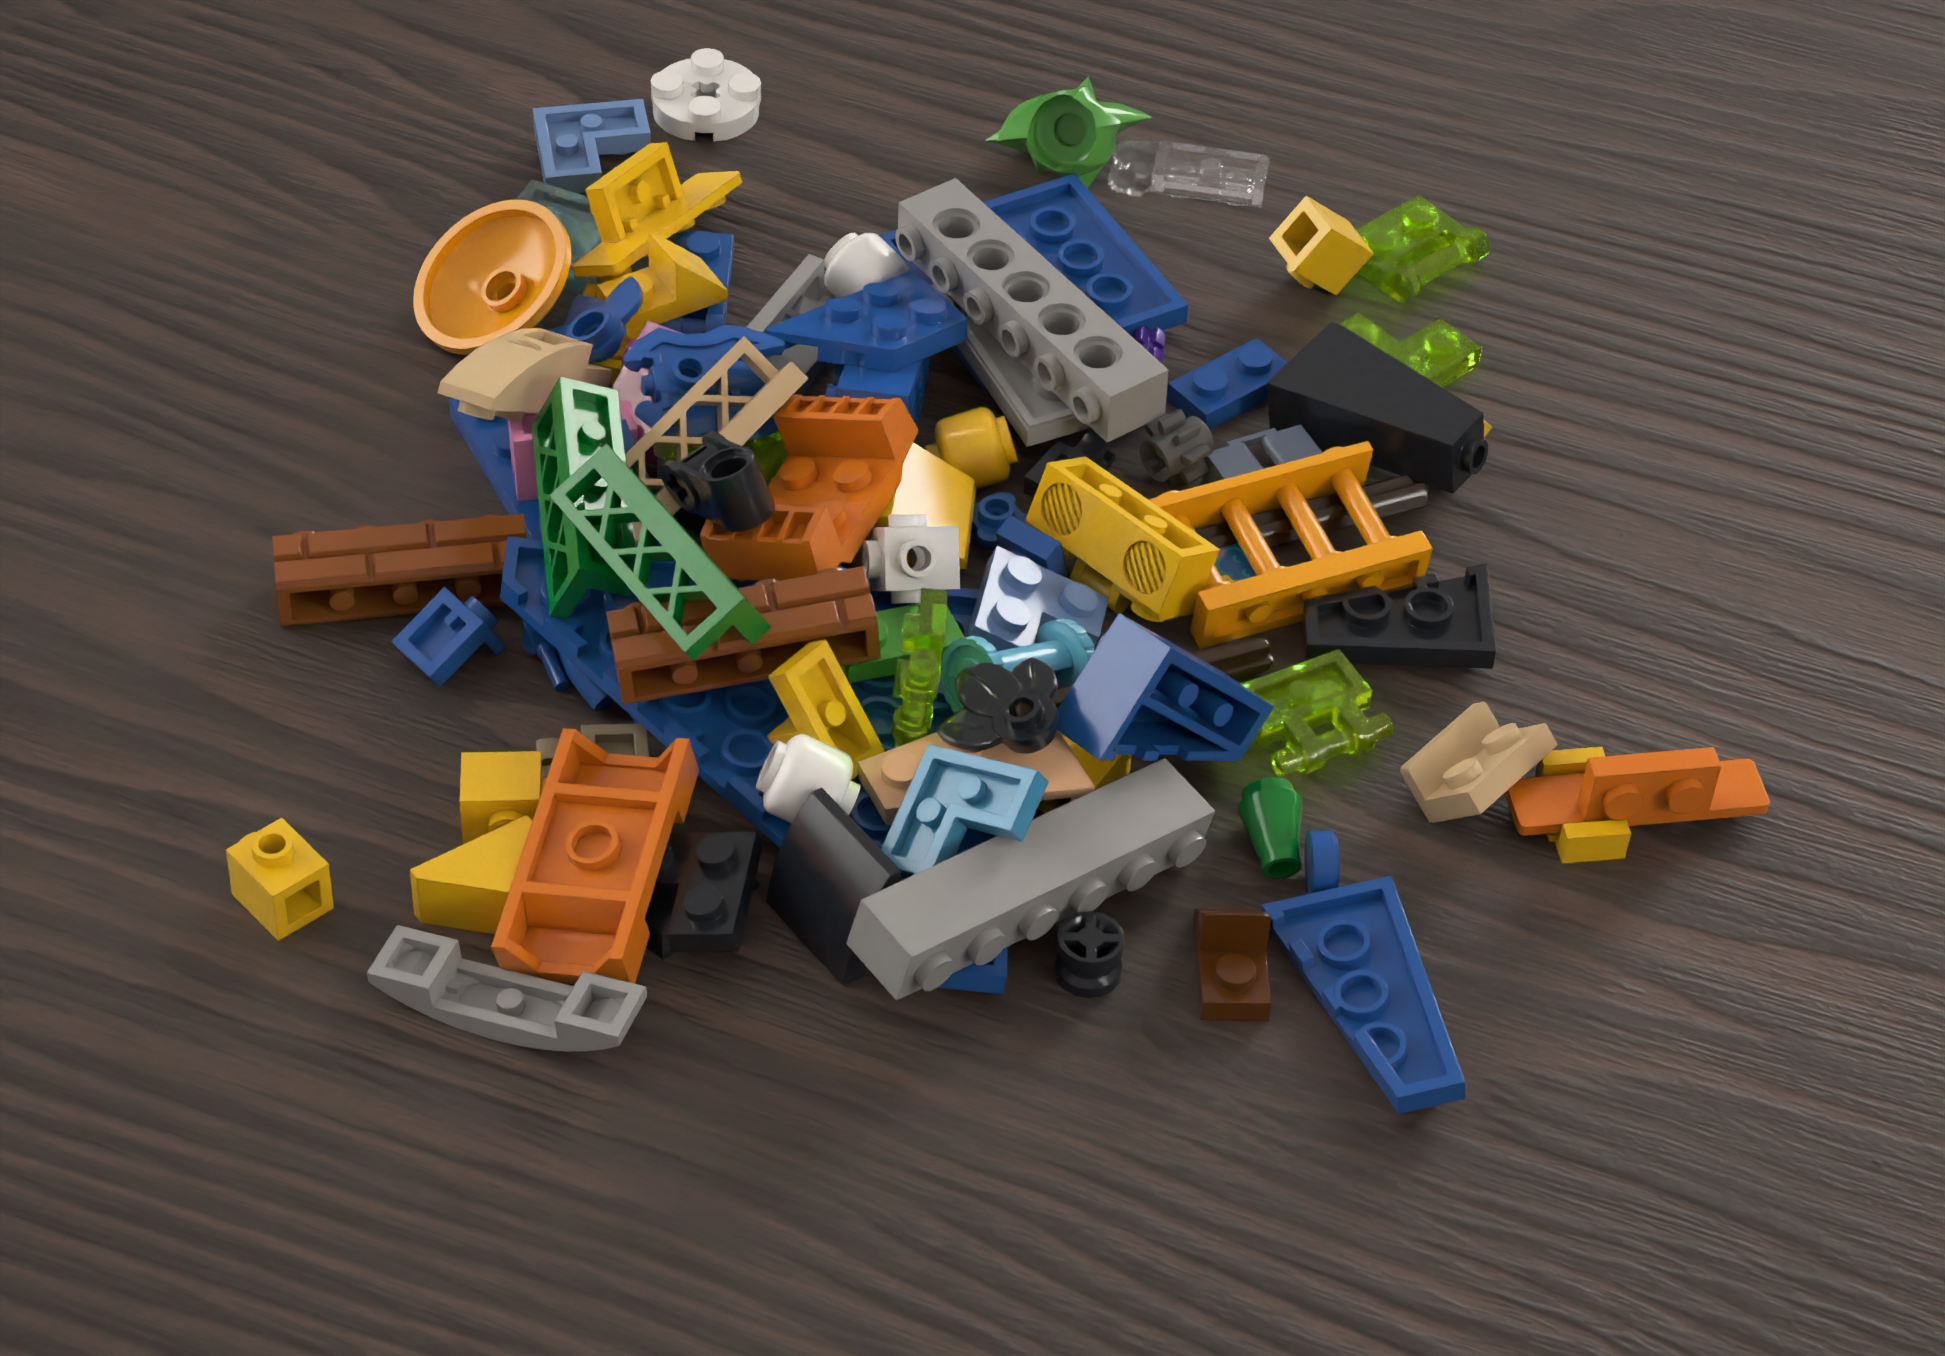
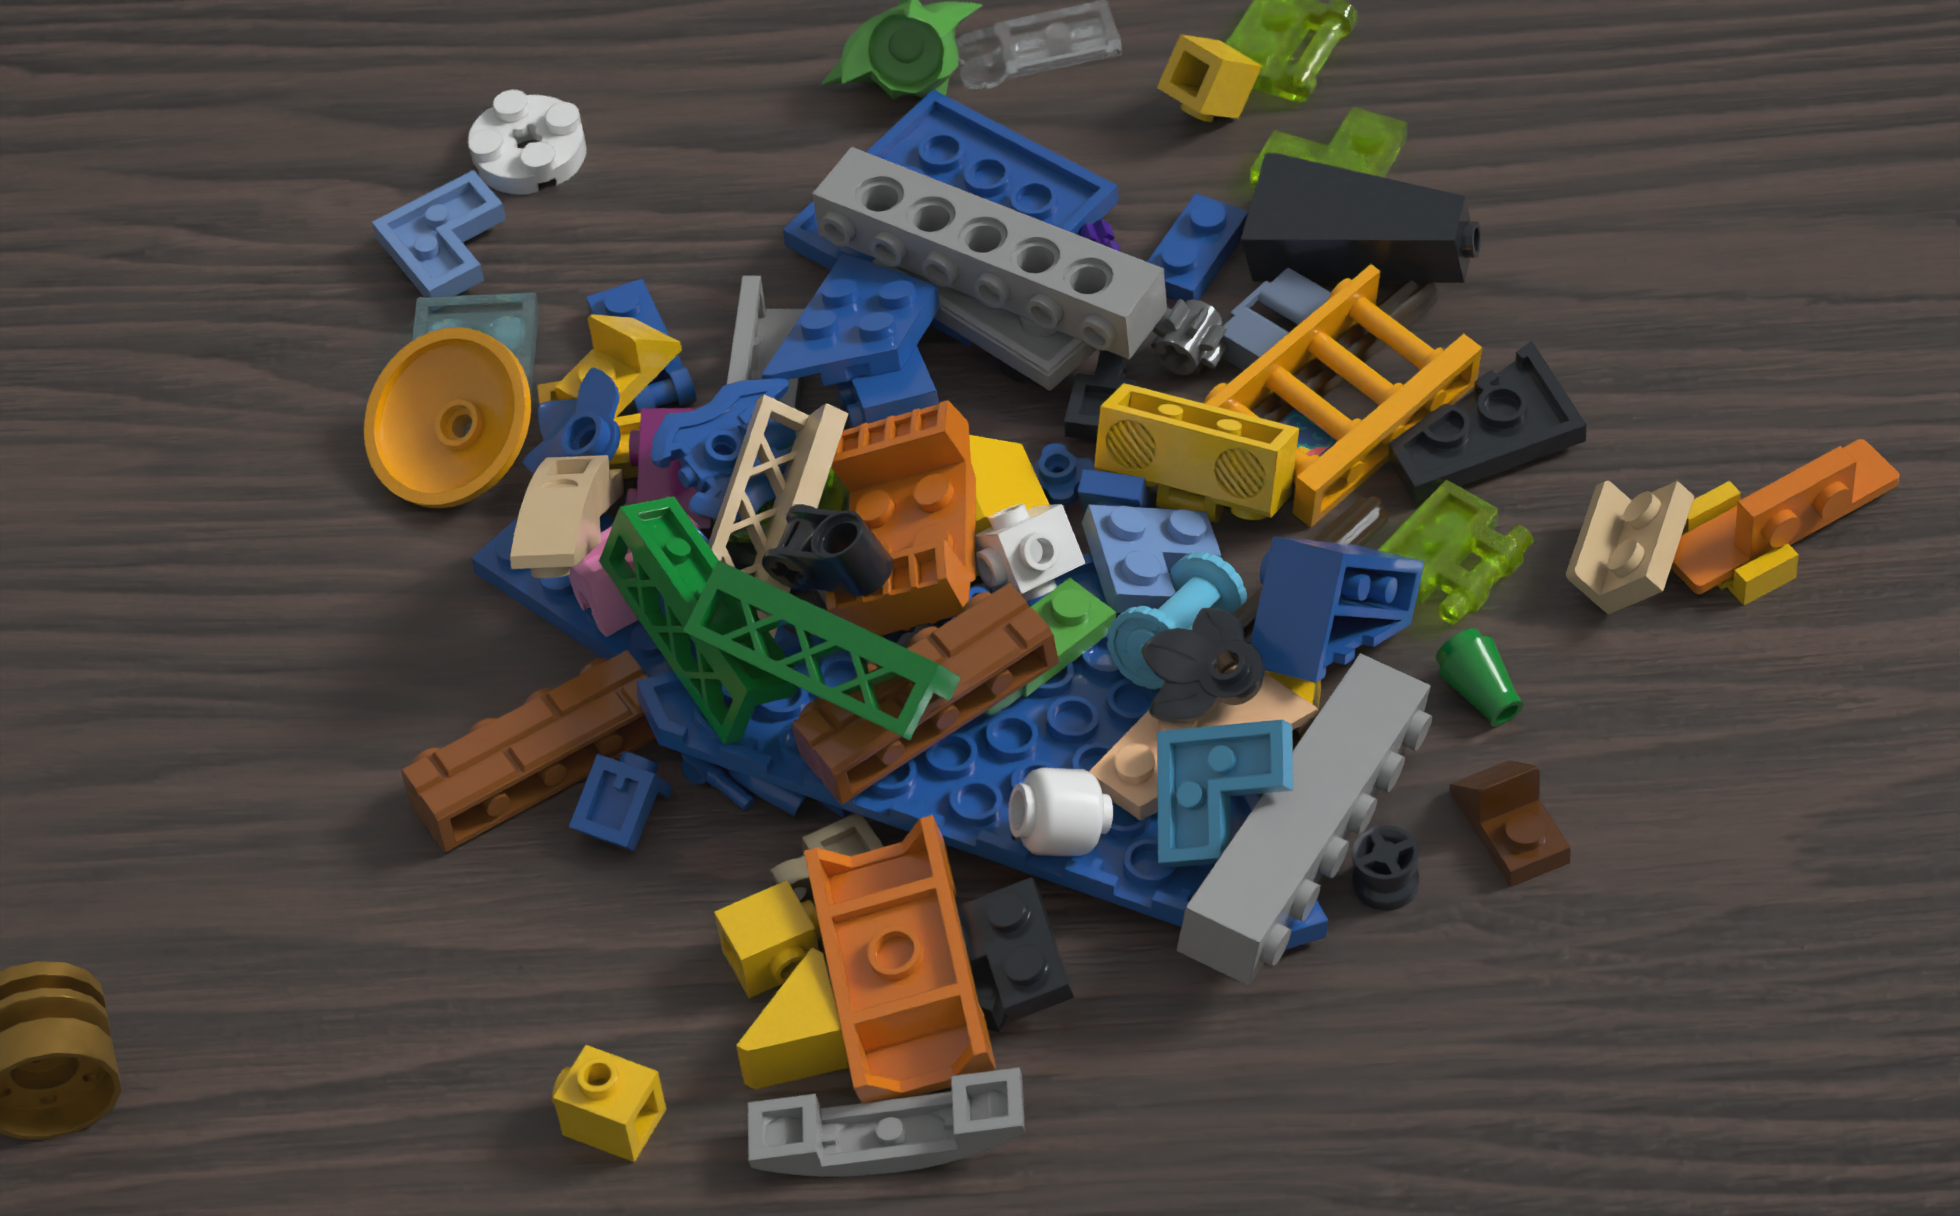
camera: 15 degrees left, 5 degrees up
(645, 198) = (554, 287): yellow bracket -> none
(822, 704) = (1031, 733): yellow slope -> none
(822, 878) = (1128, 899): black slope -> none
(860, 261) = (793, 268): white head -> none
(919, 677) = (1103, 660): clear neon green plate -> none
(976, 445) = (1003, 407): yellow head -> none
(1321, 860) = (1542, 695): blue tile -> none
(1372, 983) = (1648, 790): blue wing -> none

